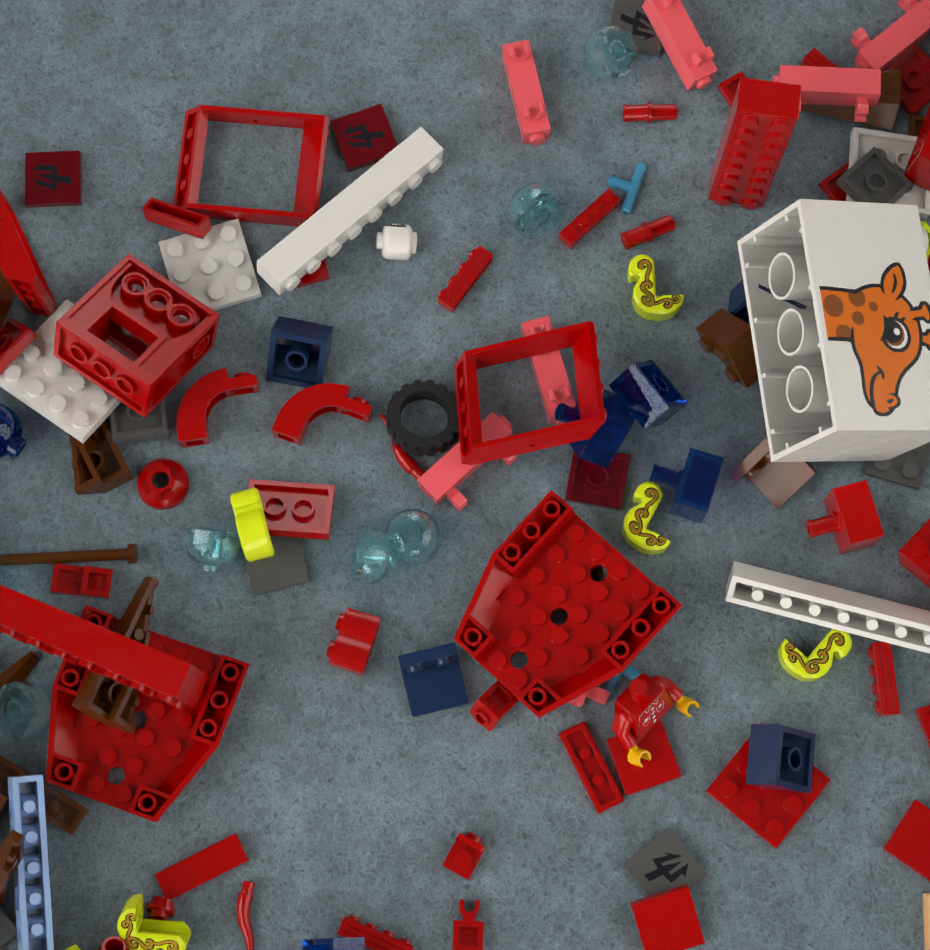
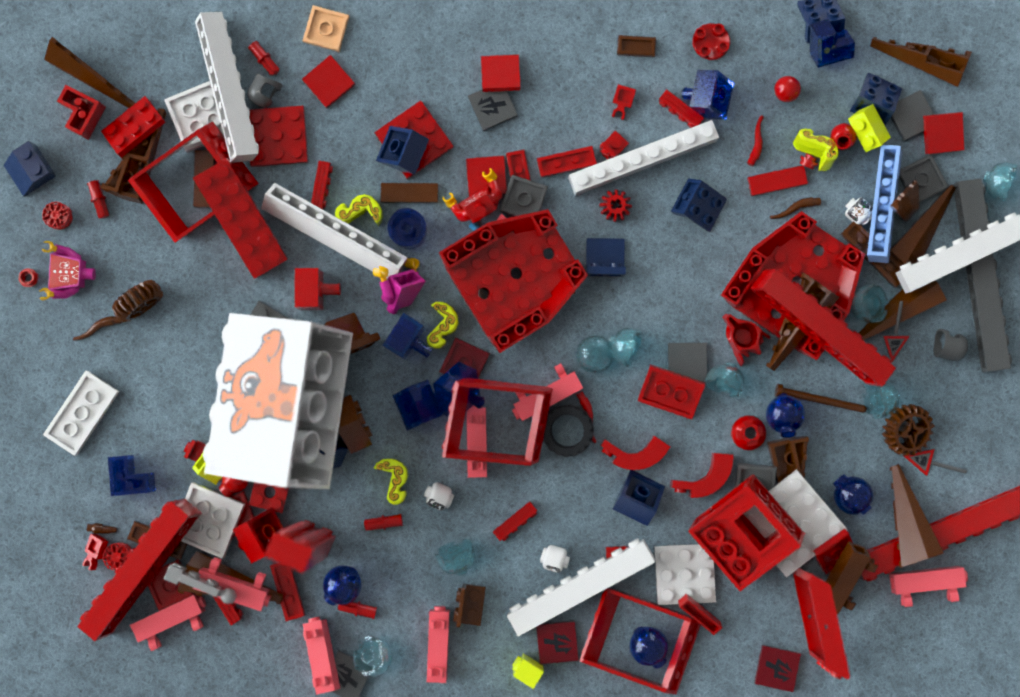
camera: 160 degrees left, 10 degrees up
(67, 850) = (859, 211): none -> white head
(81, 581) = (815, 381): red slope -> none
(115, 516) = (785, 415): none -> clear blue brick
(157, 841) = (806, 202): none -> reddish brown animal
(200, 615) = (743, 337): none -> red piece
(237, 159) = (649, 647): none -> clear blue brick
(252, 524) = (698, 385): neon yellow animal -> none
(312, 798) = (699, 203): none -> dark blue bracket
(354, 641) = (649, 295): red brick -> none
(396, 86) = (527, 670): none -> neon yellow brick
(413, 846) = (643, 157): none -> white brick
(443, 770) = (618, 211): none -> red gear
(493, 705) = (572, 231): red bracket -> none
(499, 153) = (470, 606): none -> reddish brown bracket
(529, 811) = (566, 161): none -> red plate
(578, 736) = (523, 196): none -> dark grey tile
(581, 283) = (438, 496): none -> white head
(589, 218) = (420, 542): red piece -> none
(631, 187) = (384, 557): dark azure piece -> none
(680, 132) = (341, 585): none -> clear blue brick
(719, 553) = (400, 288): none -> dark pink torso
(741, 628) = (398, 222): none -> clear blue brick
(750, 703) = (409, 192): none -> reddish brown tile
(811, 165) = (257, 533): none -> red brick
(874, 180) = (222, 512): dark grey tile -> none
(885, 76) = (177, 574): none -> light grey plate

